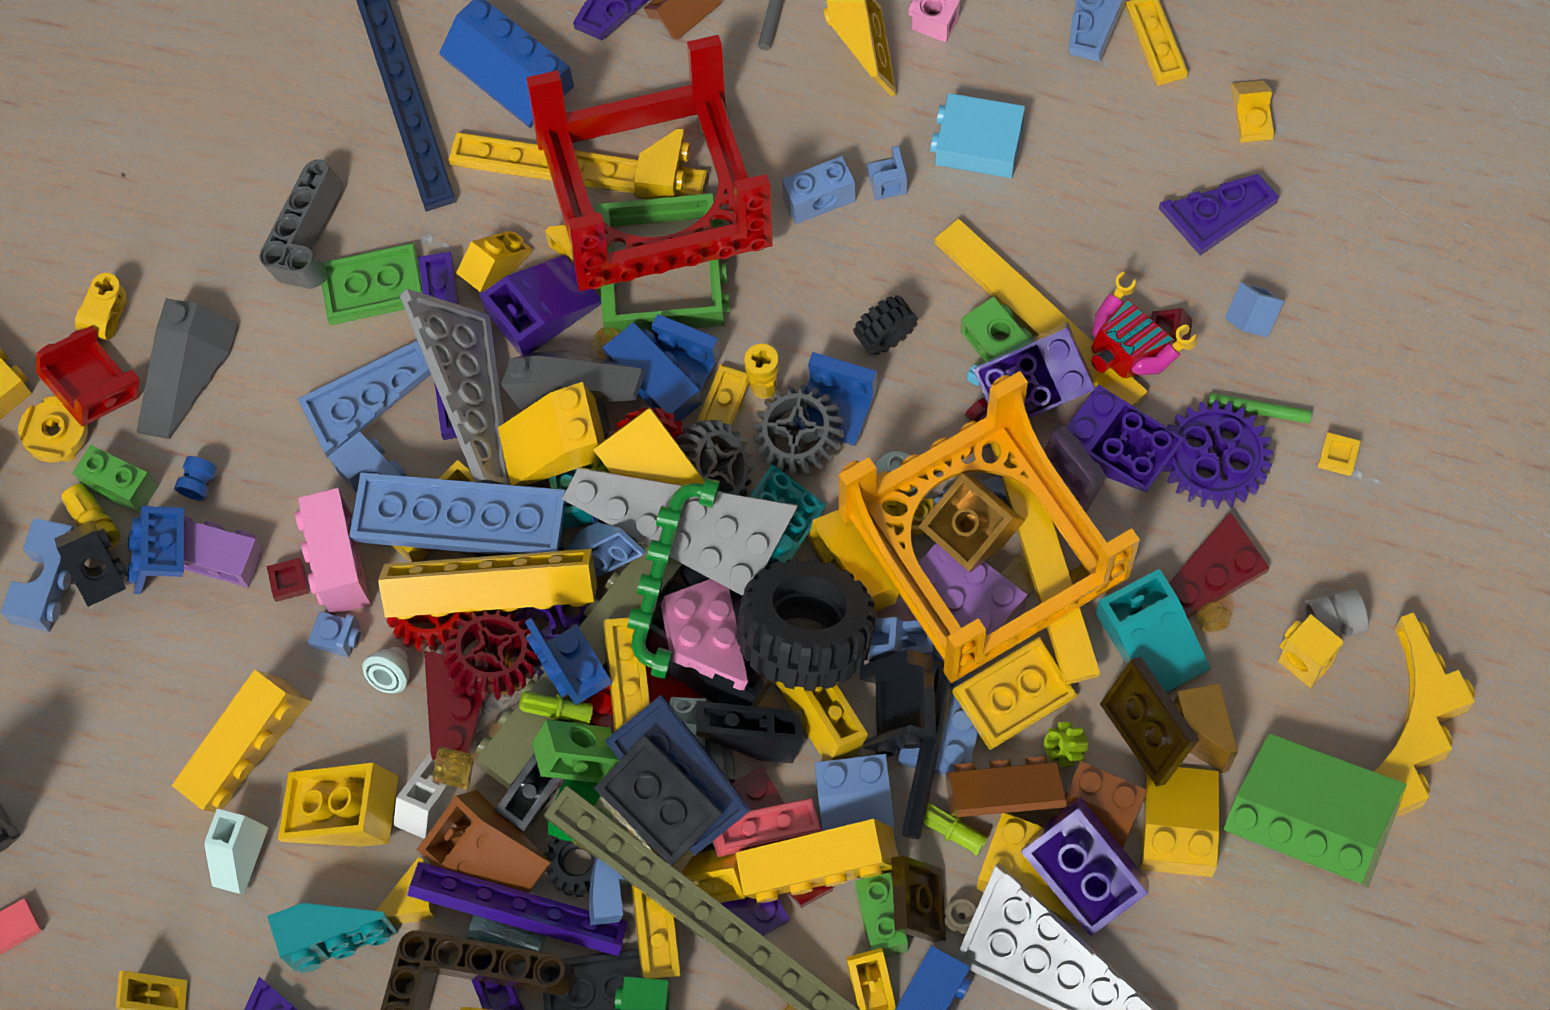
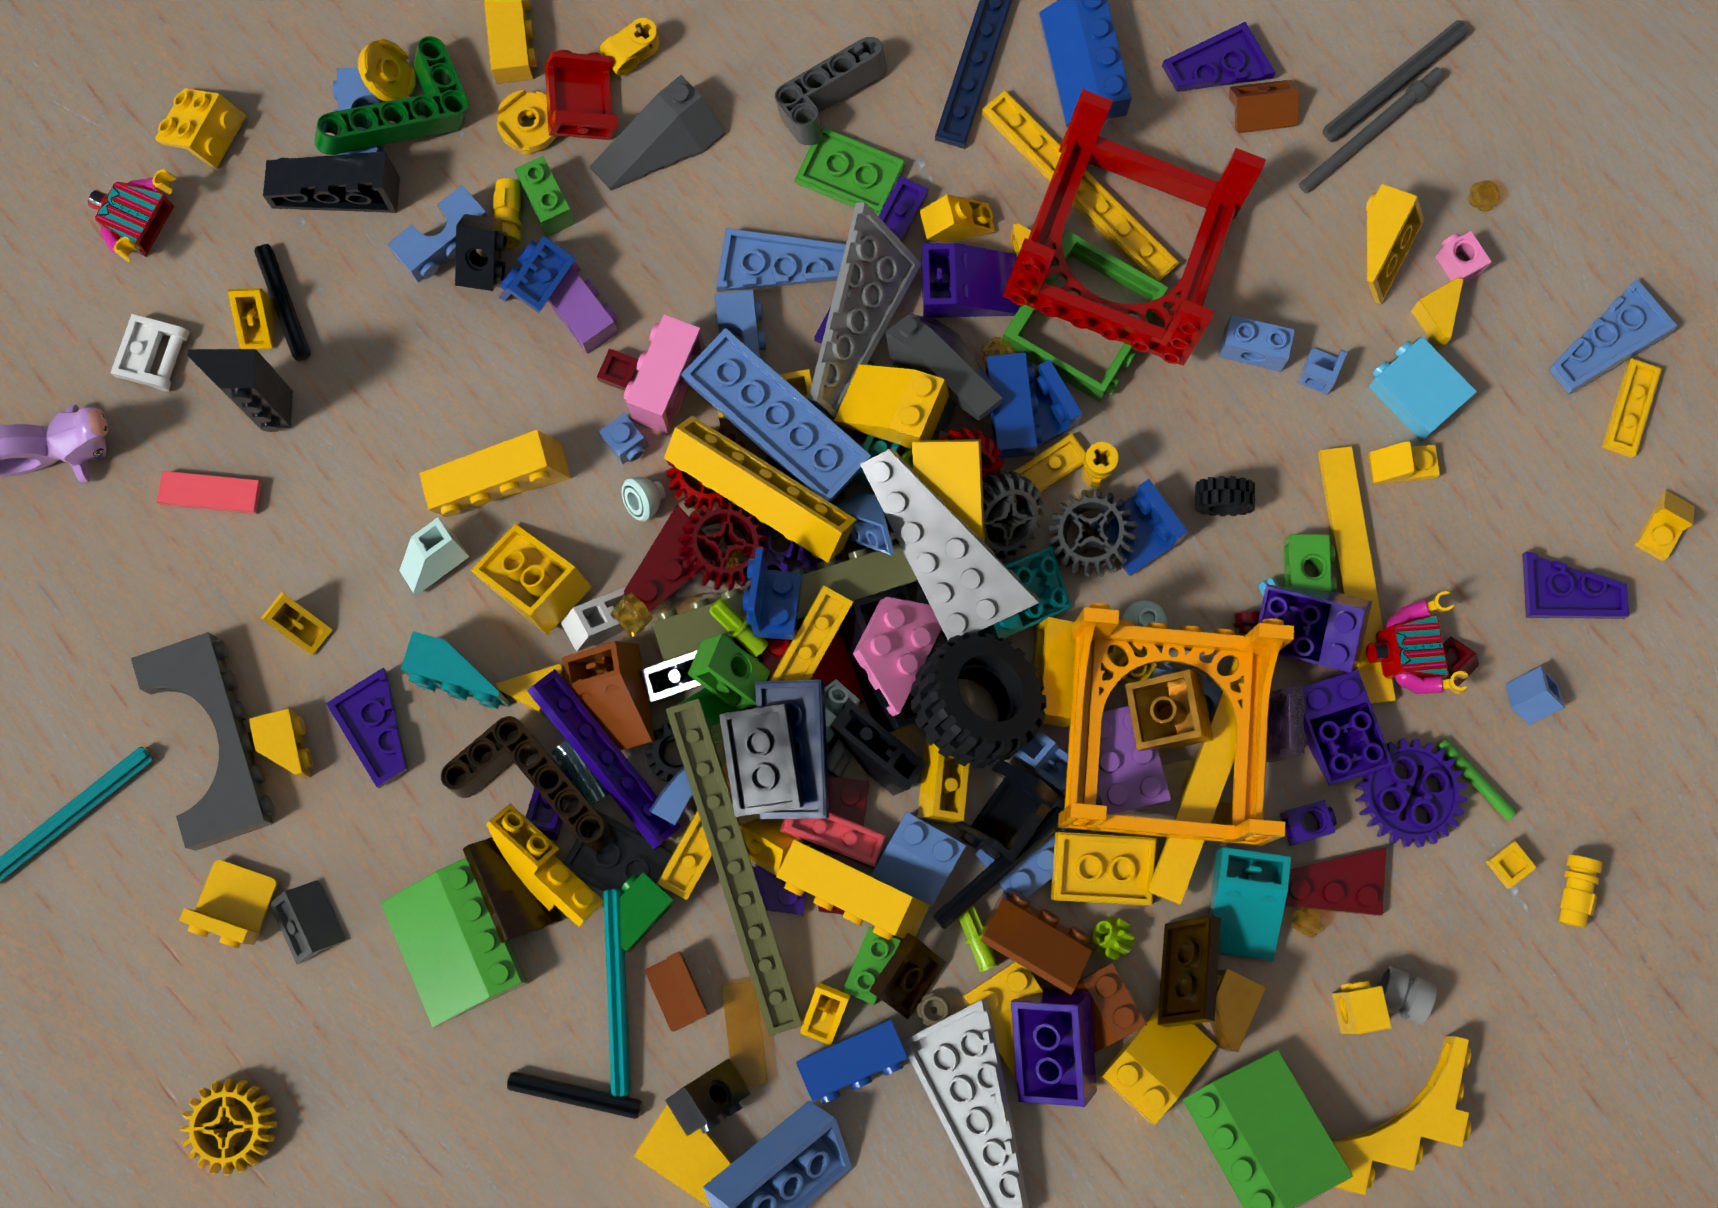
camera: 30 degrees right, 10 degrees up
(196, 476) = (605, 238): blue wheel -> none
(651, 584) = (902, 565): green bar -> none
(660, 167) = (1142, 235): yellow slope -> none
(946, 67) = (1438, 312): none -> yellow slope
(1010, 203) = (1403, 463): none -> yellow slope
(1151, 550) = (1295, 828): none -> dark purple brick
(1408, 438) = (1577, 896): none -> yellow axle

